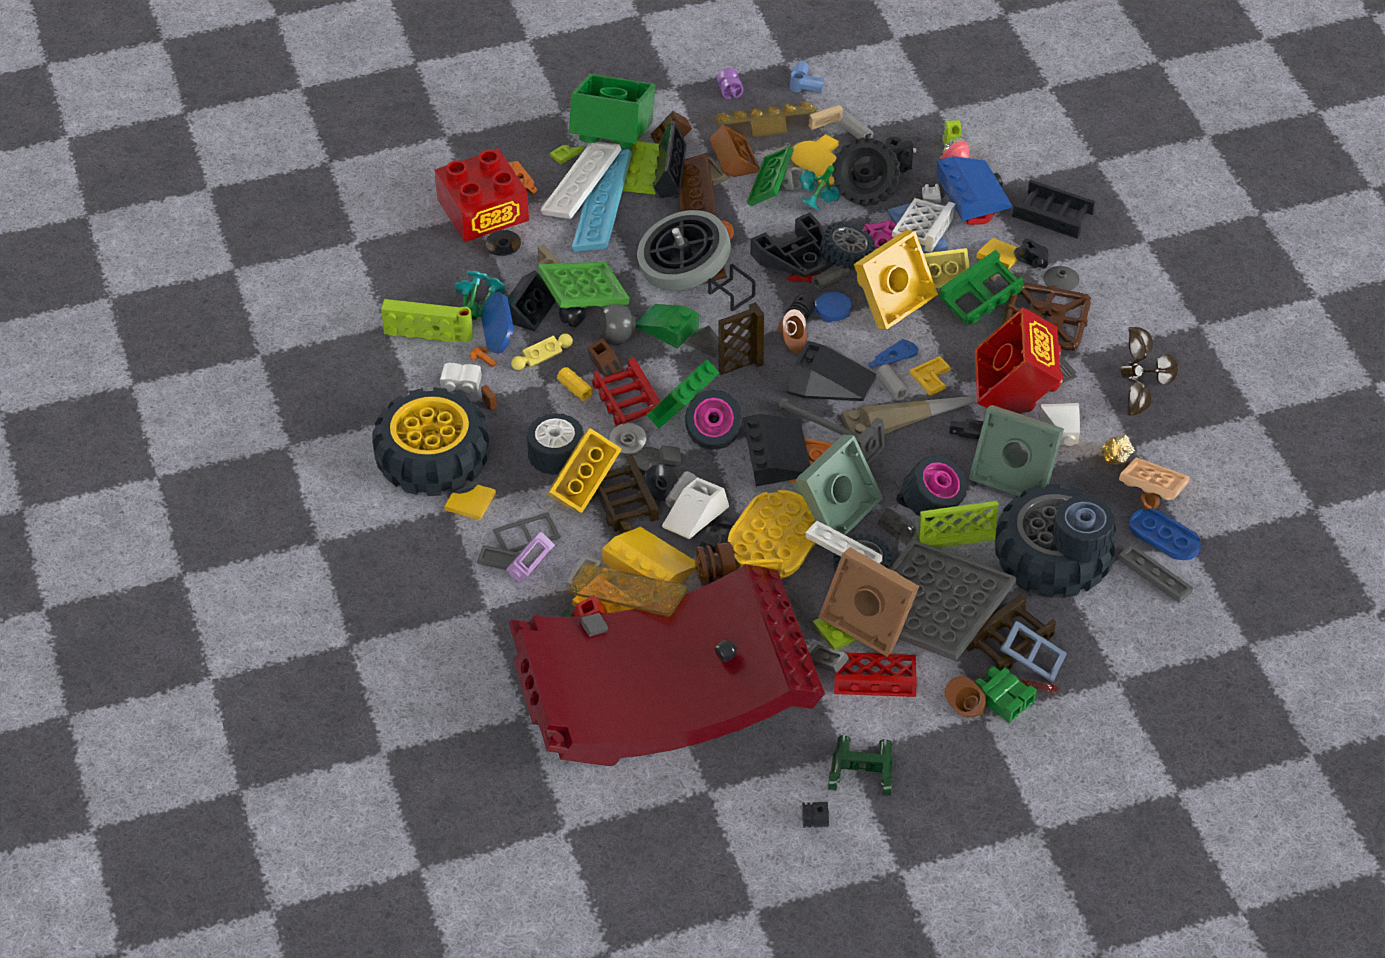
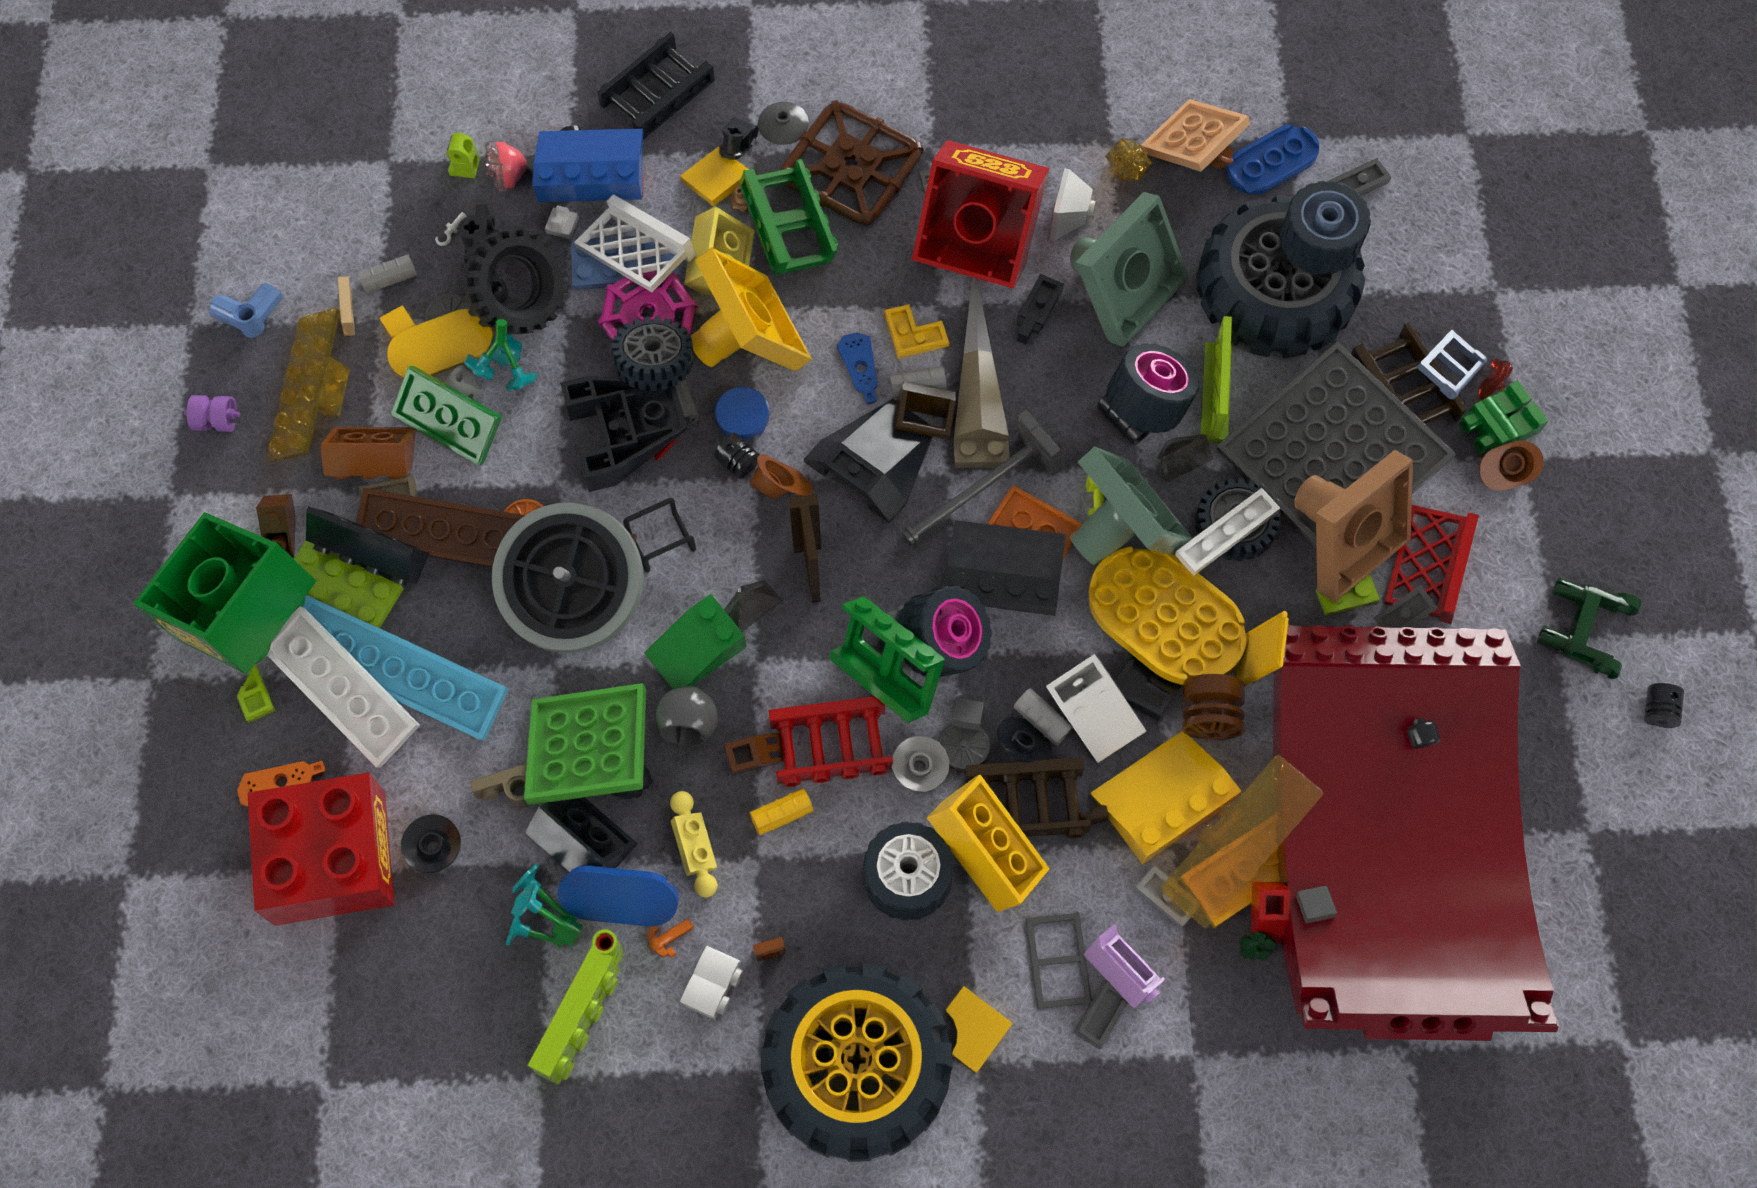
camera: 75 degrees left, 20 degrees up
(878, 385) = (925, 401): none -> dark brown tile
(1139, 344) = (994, 94): dark brown plant -> none

